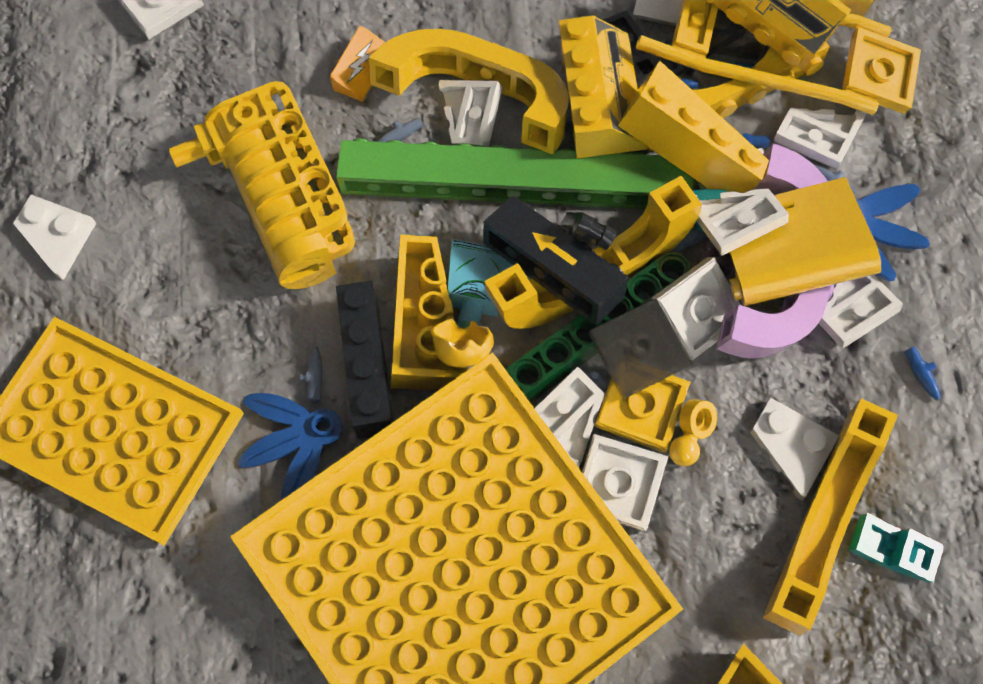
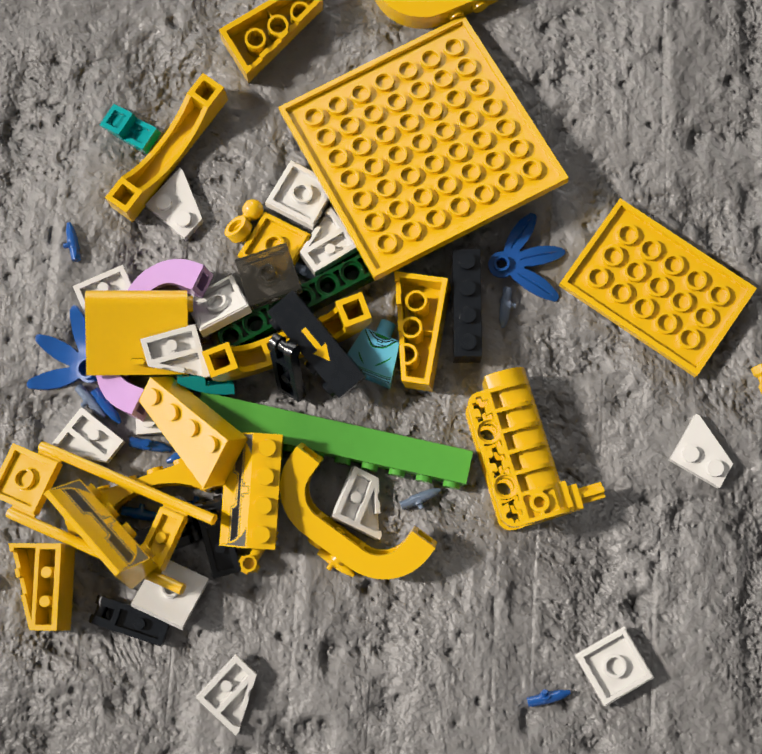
camera: 170 degrees left, 10 degrees up
(352, 71) = (443, 567): light orange slope -> none
(461, 345) = (394, 286): yellow hair -> none

